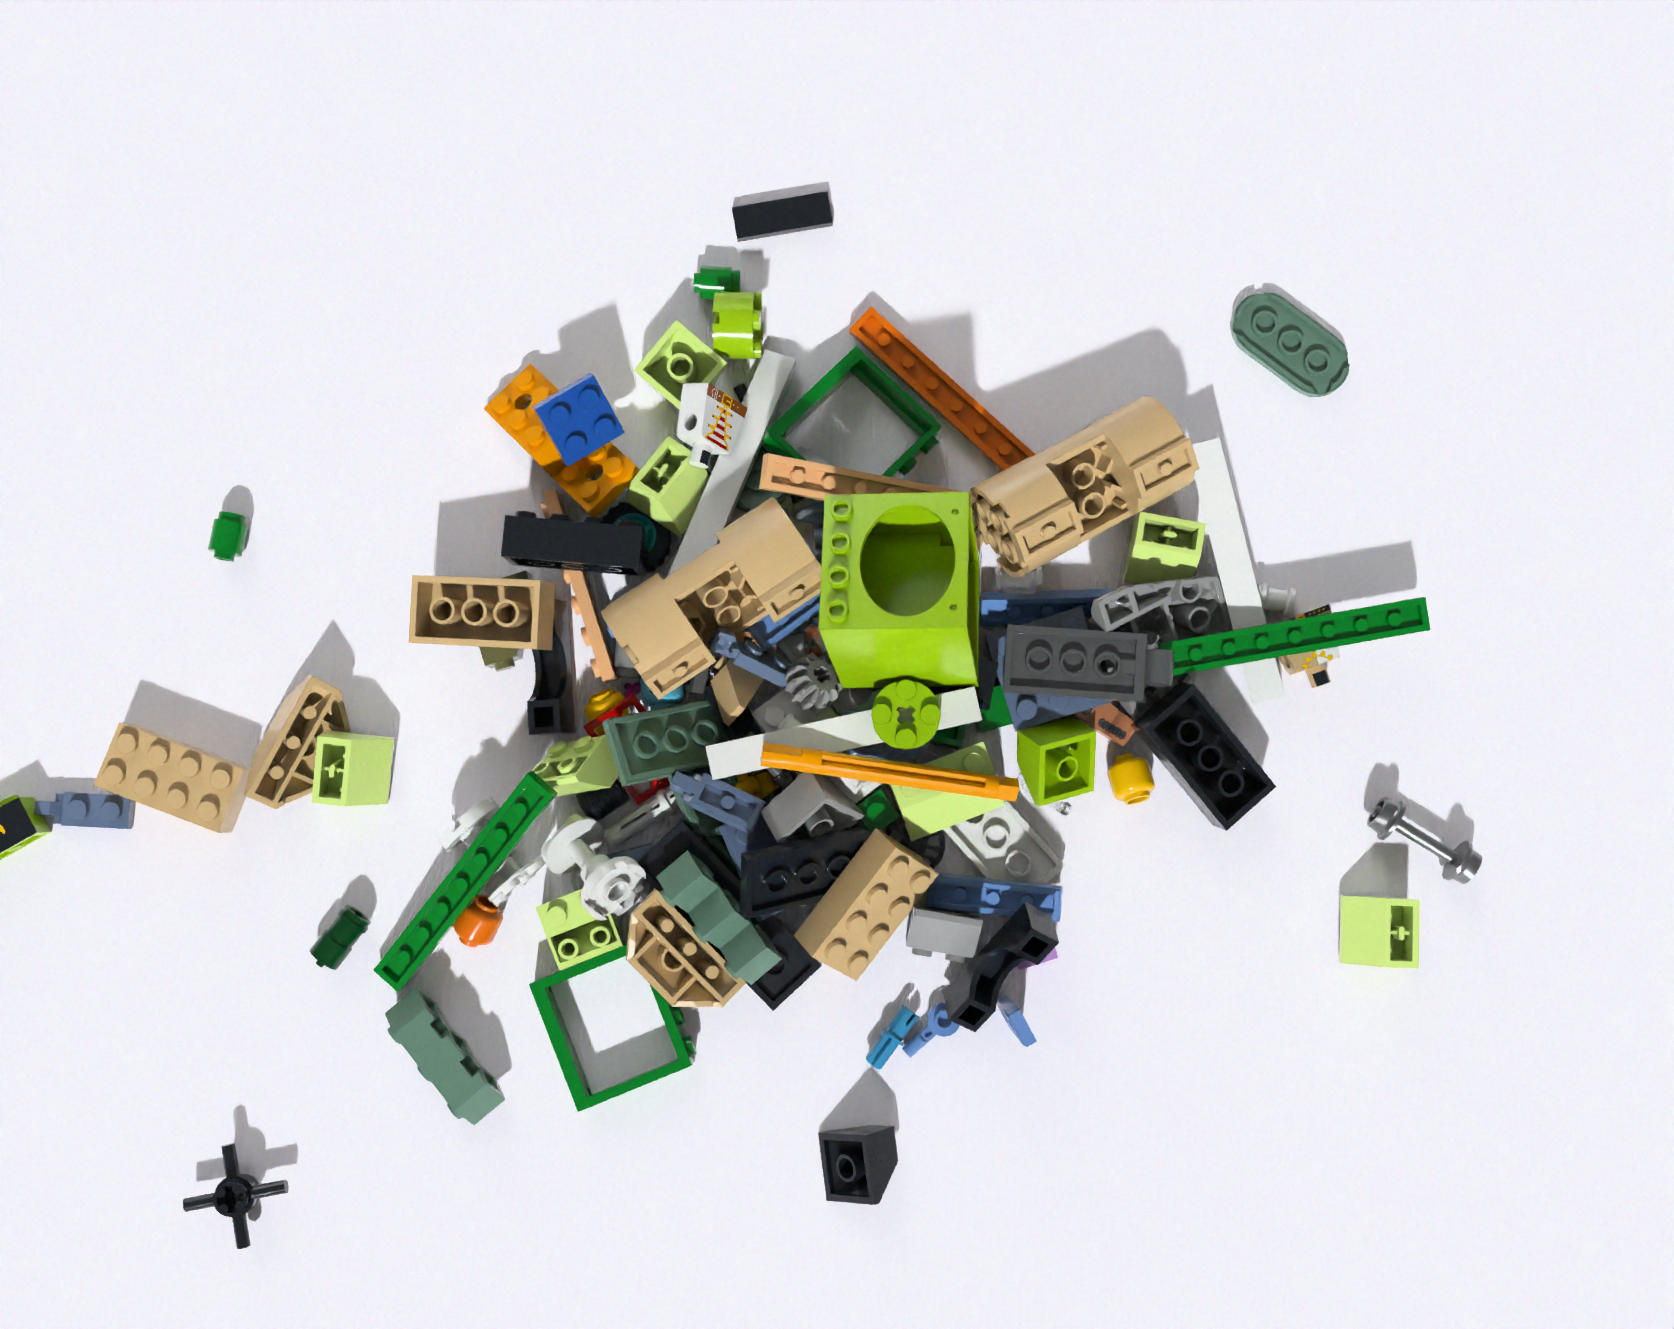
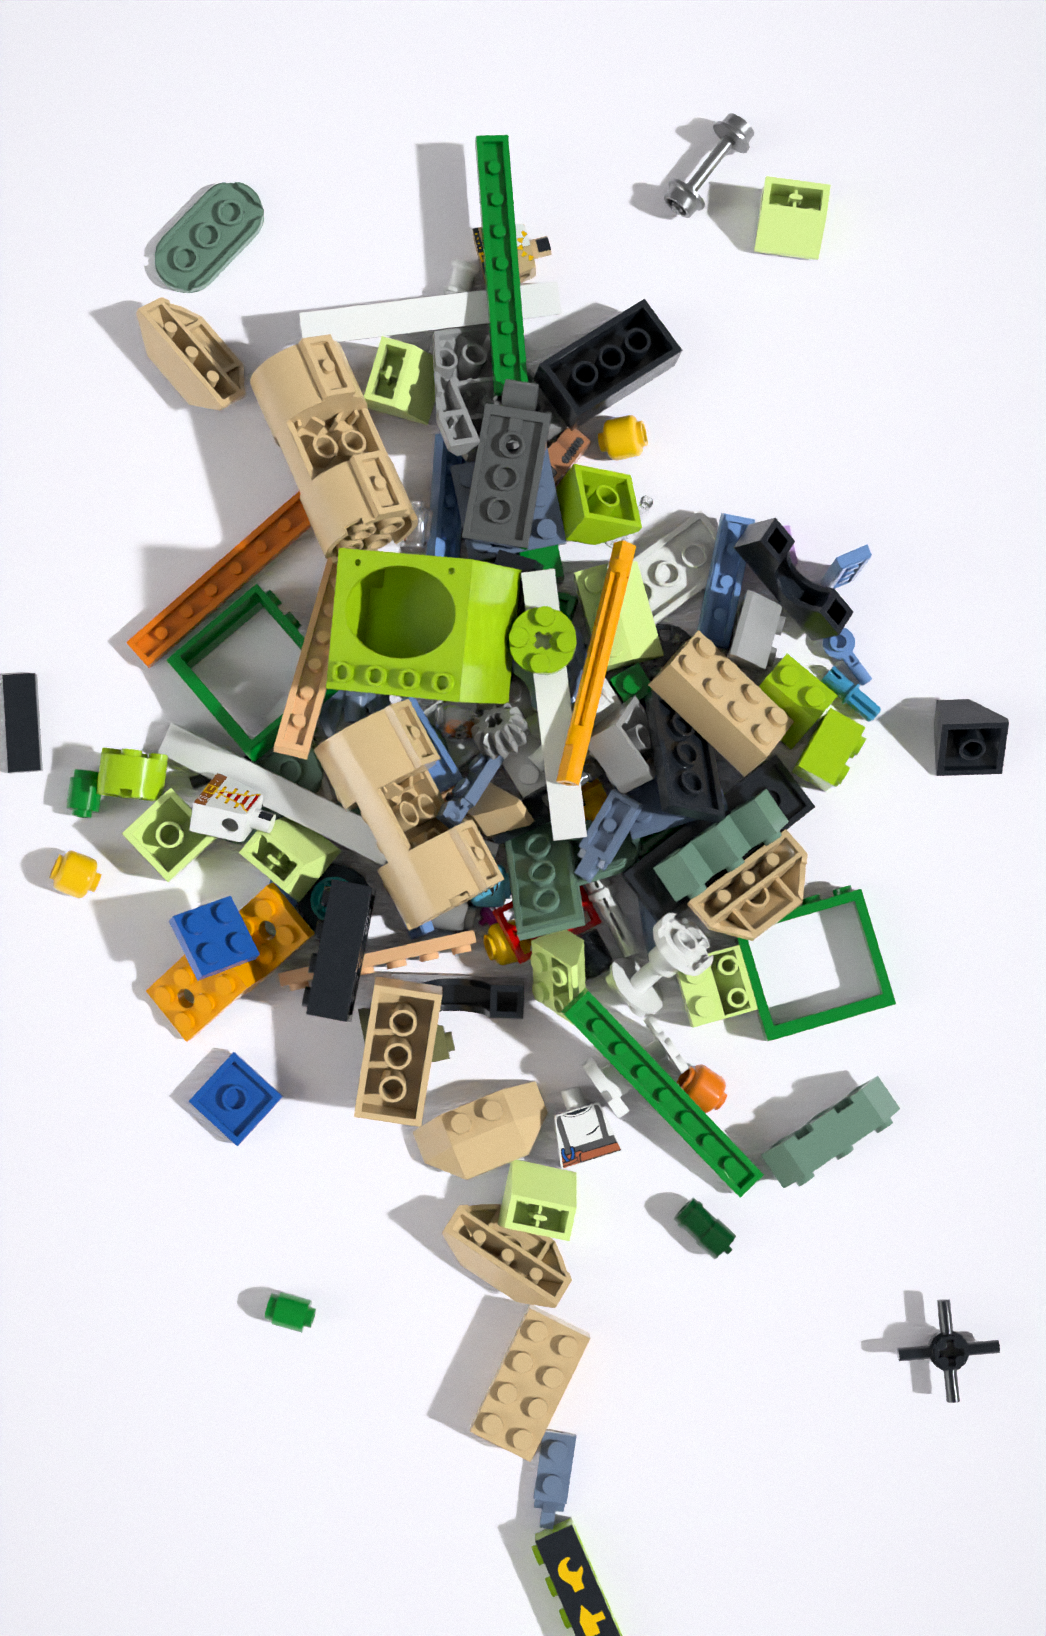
camera: 80 degrees left, 0 degrees up
(416, 709) = (484, 1132): none -> tan wedge
(426, 807) = (583, 1131): none -> torso
(431, 462) = (236, 1098): none -> blue plate
(637, 282) = (75, 874): none -> yellow head
(829, 1020) = (829, 749): none -> lime brick
(883, 982) = (799, 695): none -> lime slope
(1166, 338) = (191, 355): none -> tan wedge

